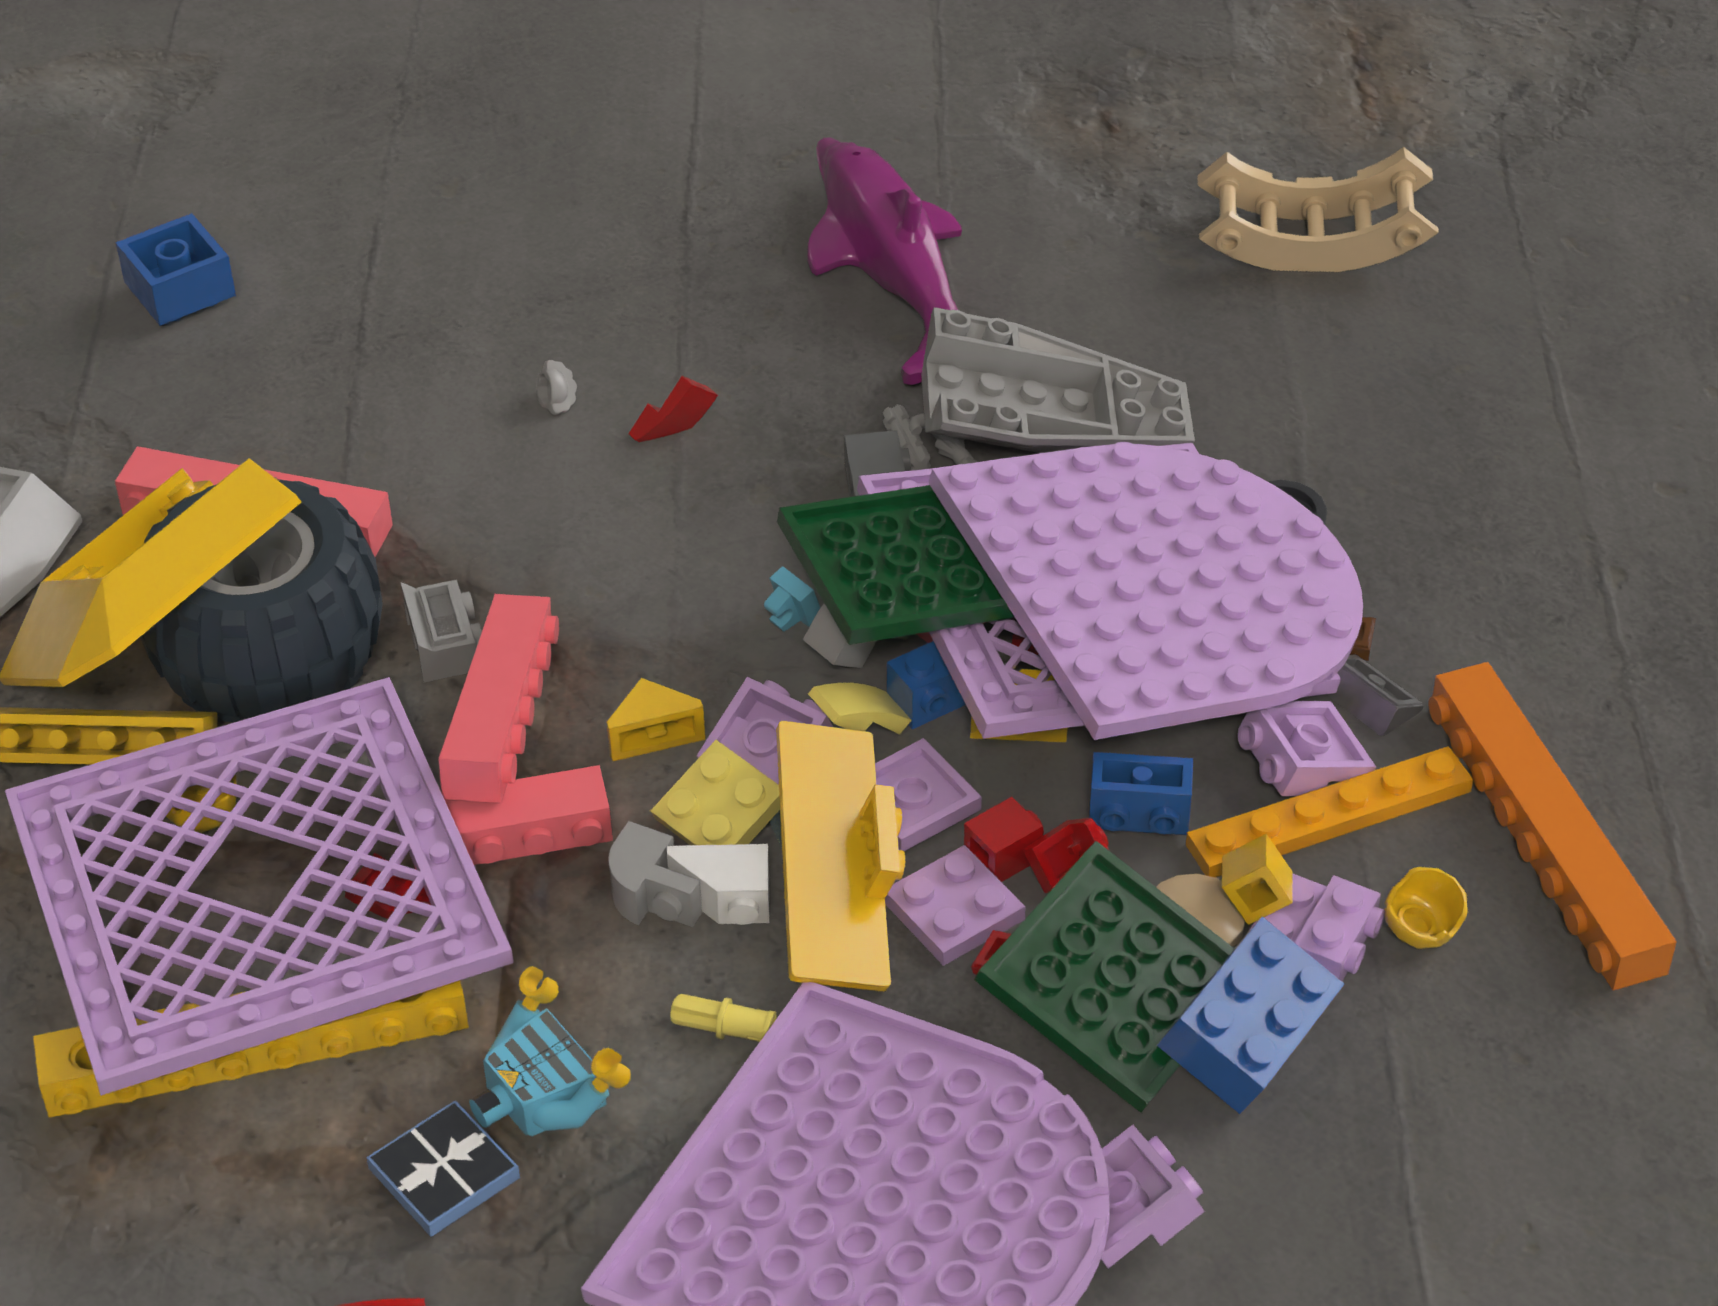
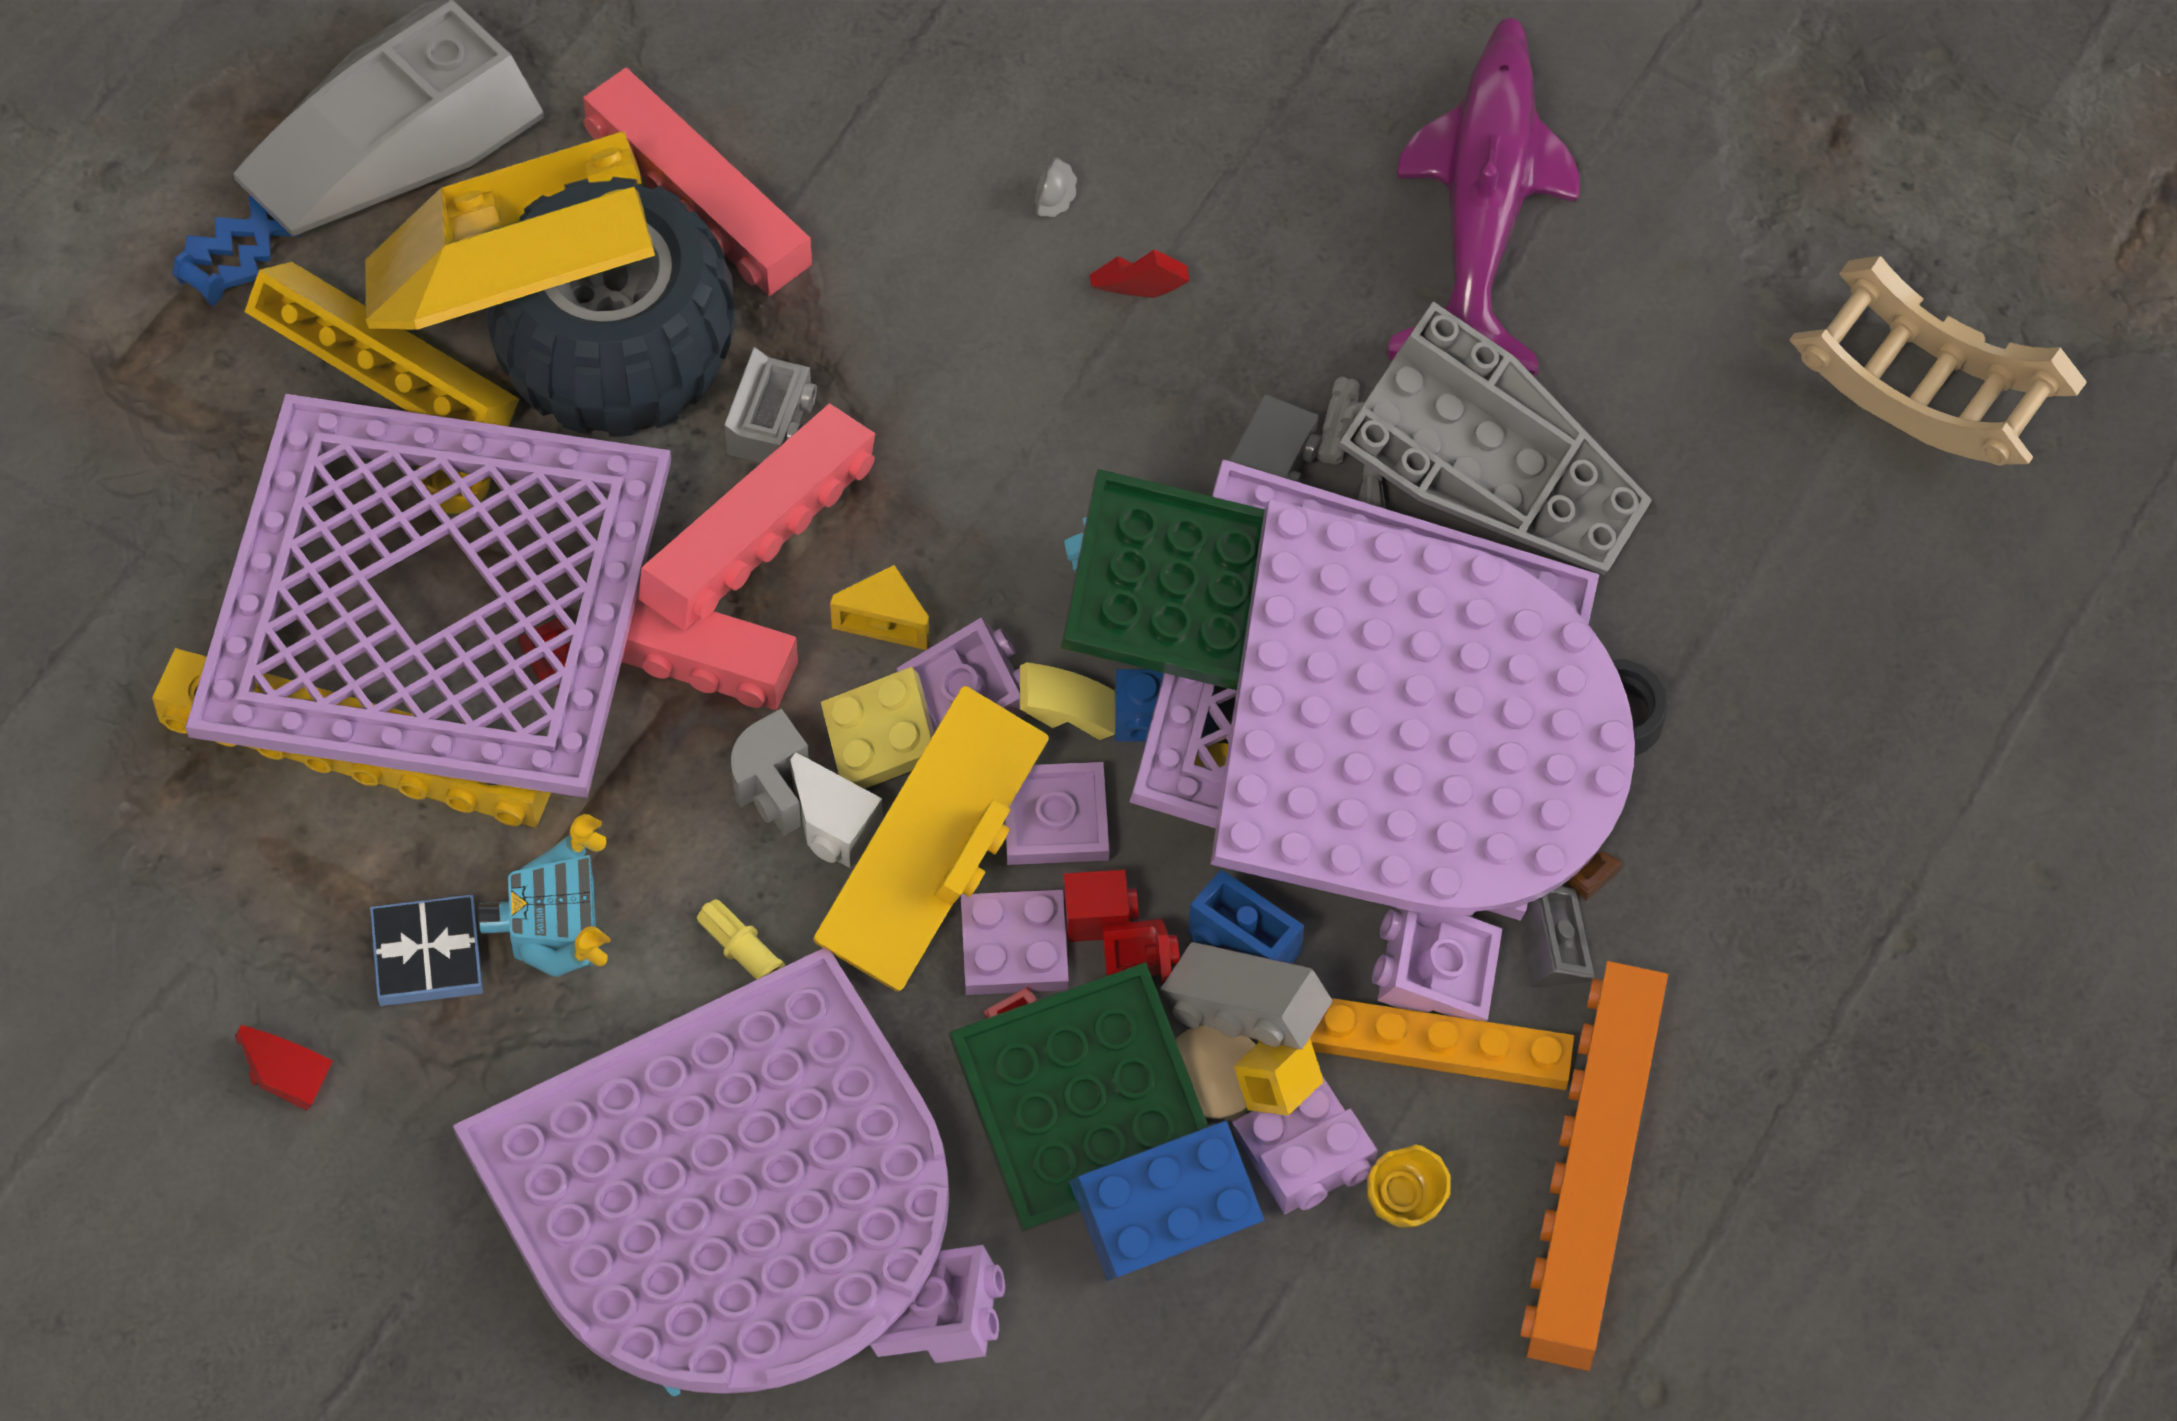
camera: 30 degrees right, 15 degrees up
(1192, 829) = (1246, 996): none -> light grey brick

